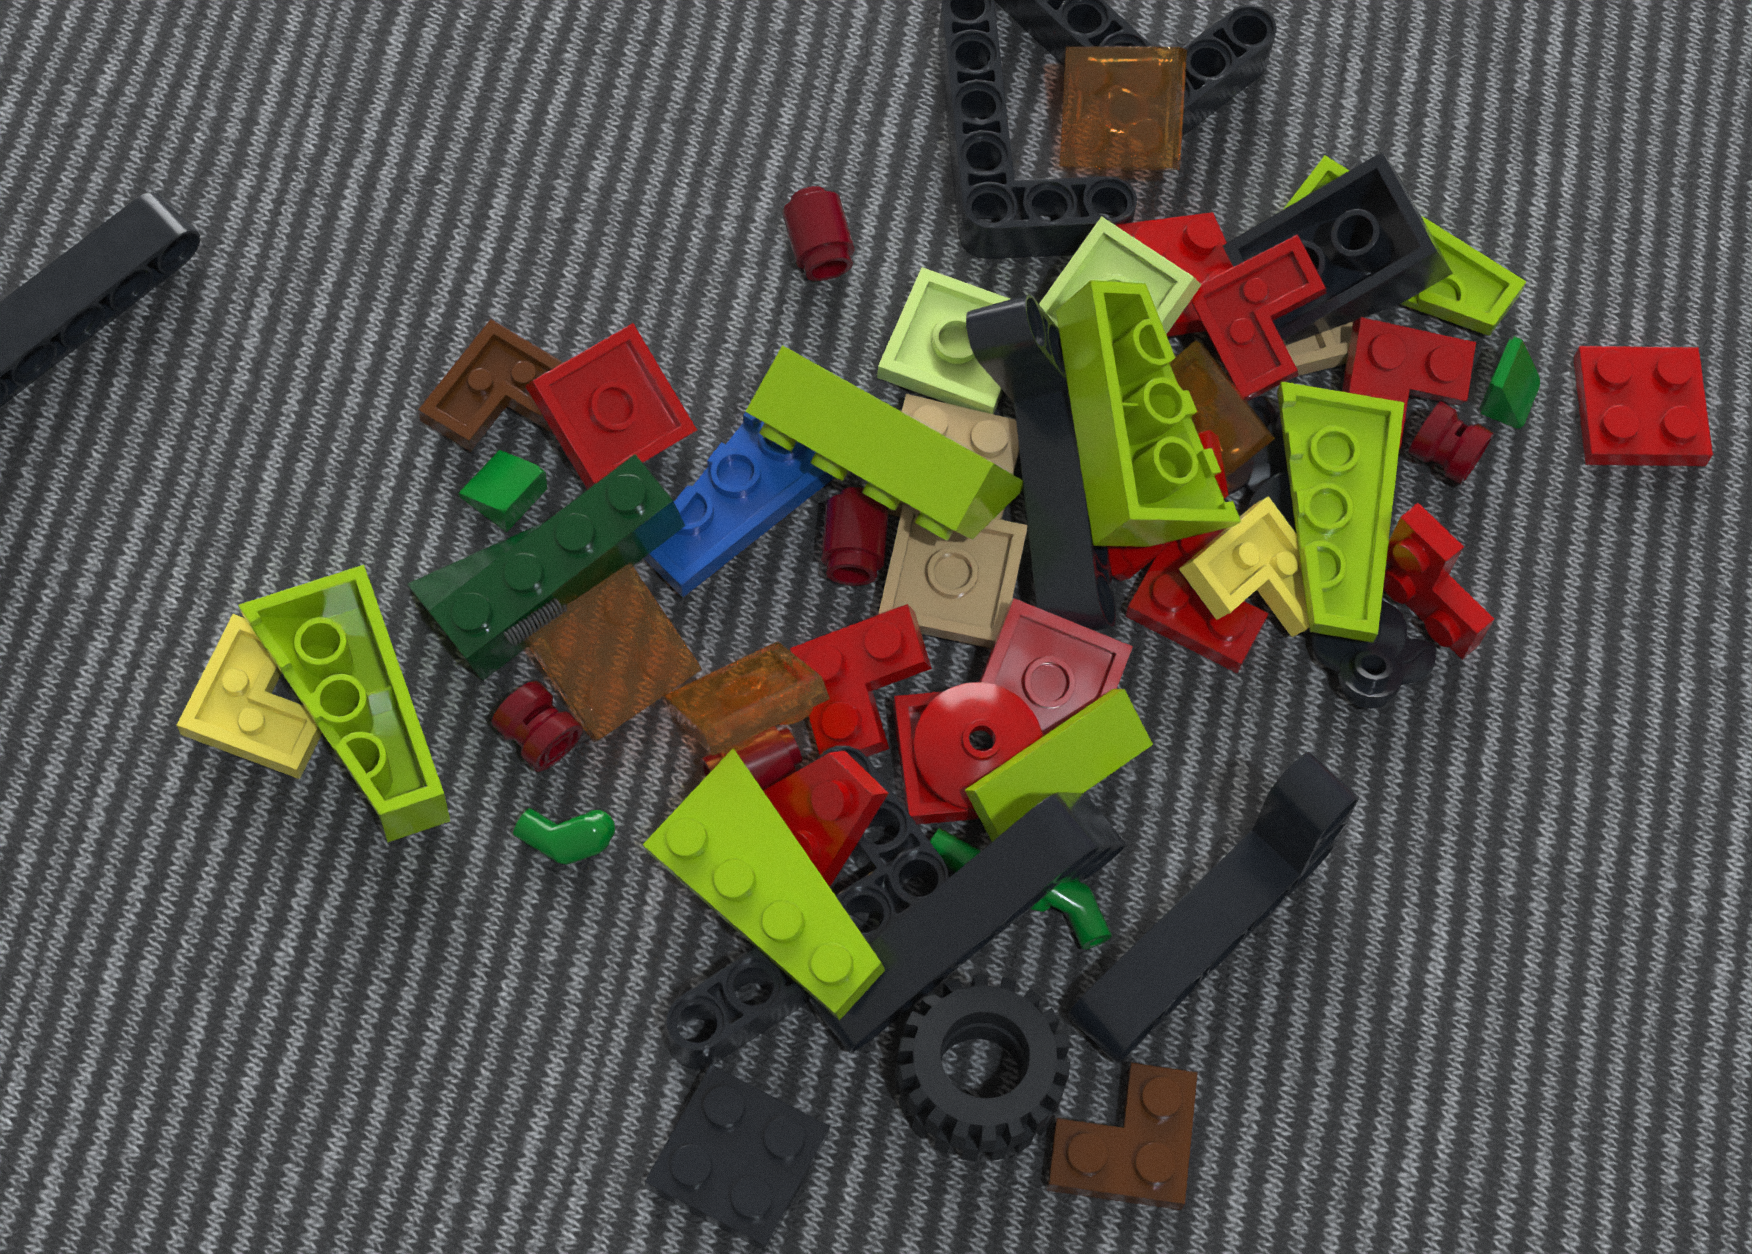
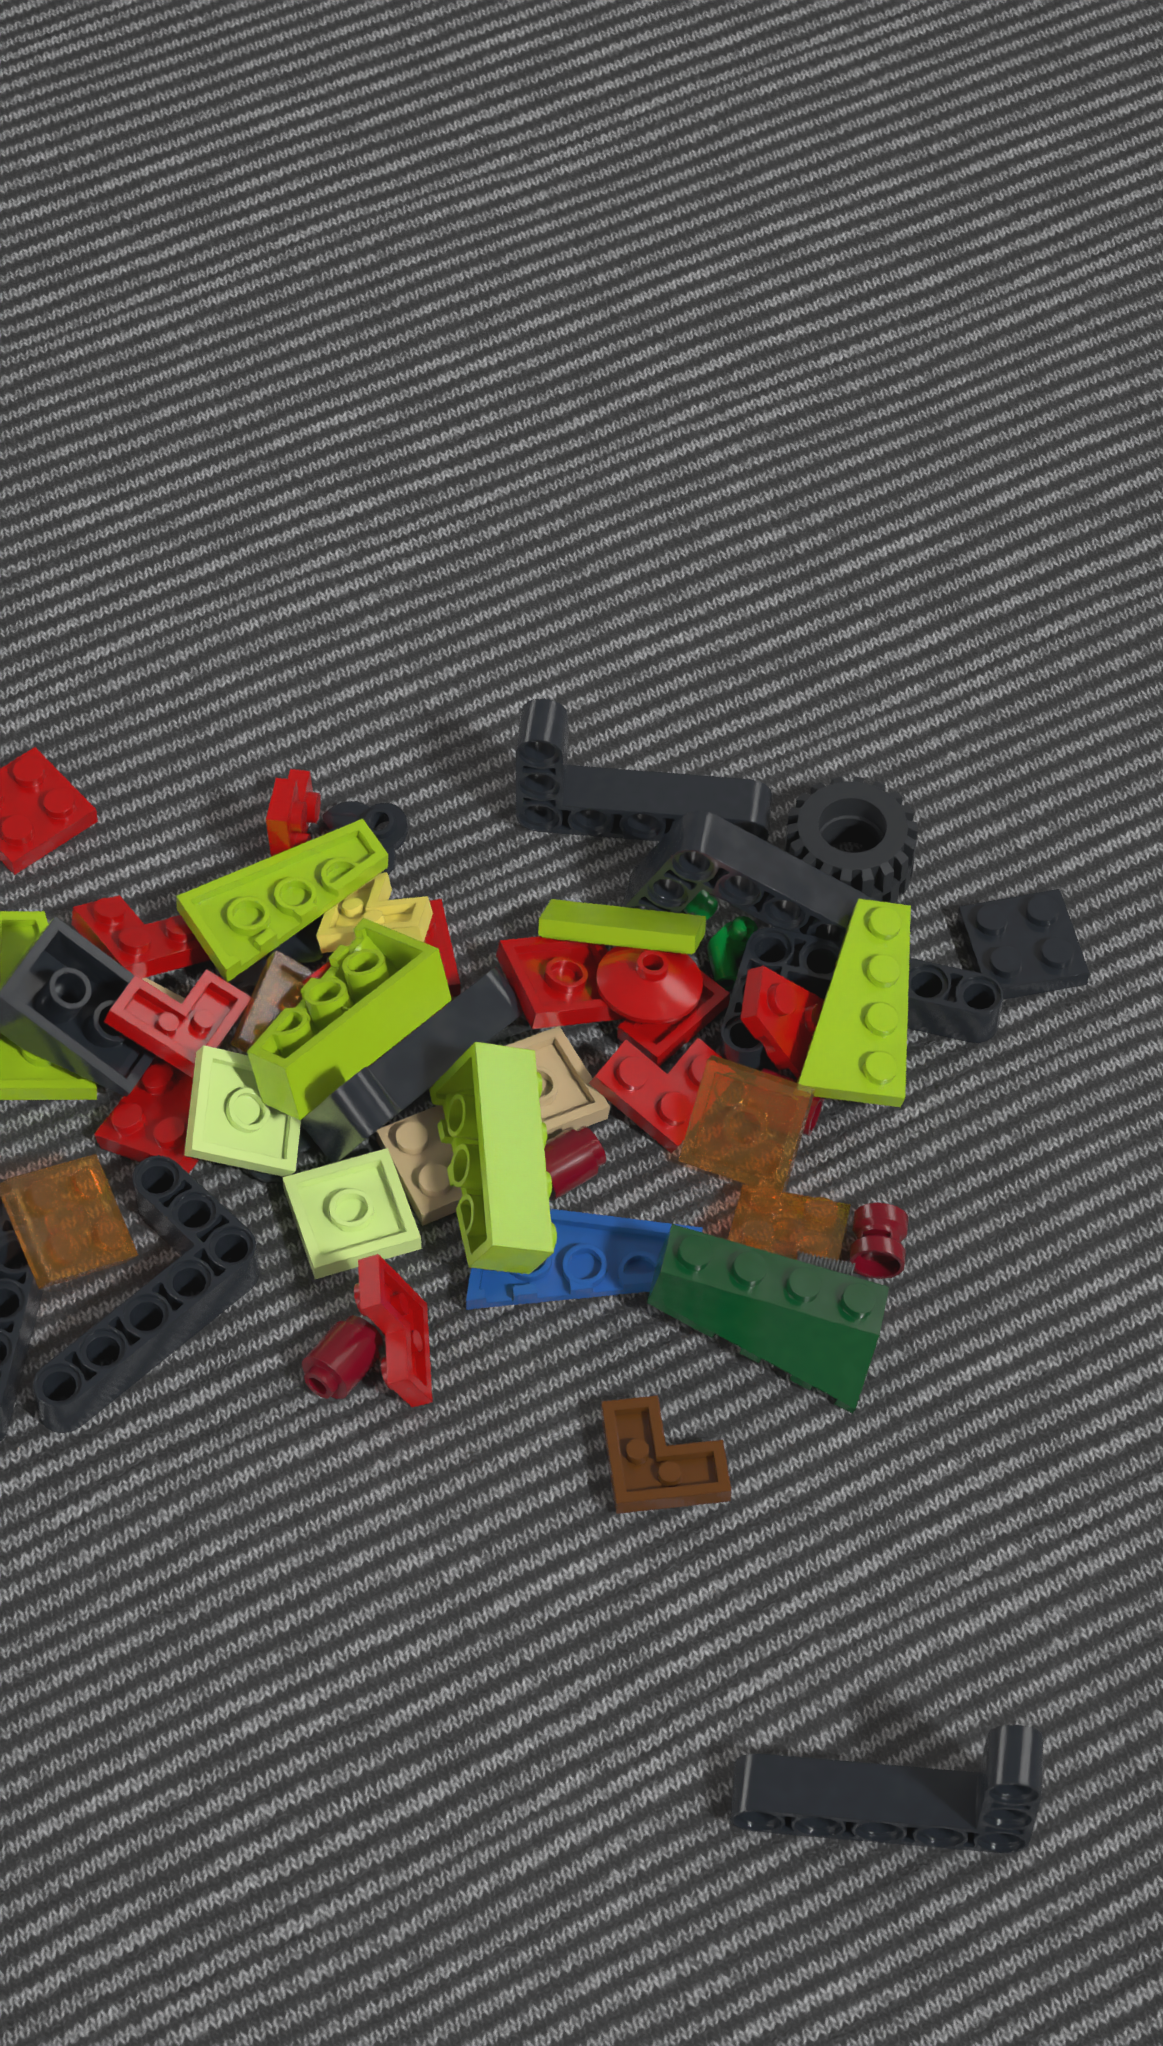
camera: 125 degrees left, 10 degrees down
(238, 711) = (1045, 1425): light yellow plate -> none
(347, 676) = (964, 1362): lime wedge -> none
(505, 489) = (730, 1402): green slope -> none
(569, 840) = (933, 1173): green arm -> none
(610, 406) = (615, 1365): red plate -> none
(801, 285) = (404, 1323): none -> red plate
(1143, 1158) = (800, 754): reddish brown plate -> none
(1450, 443) = (162, 879): dark red wheel -> none
(1512, 386) = (81, 886): green slope -> none

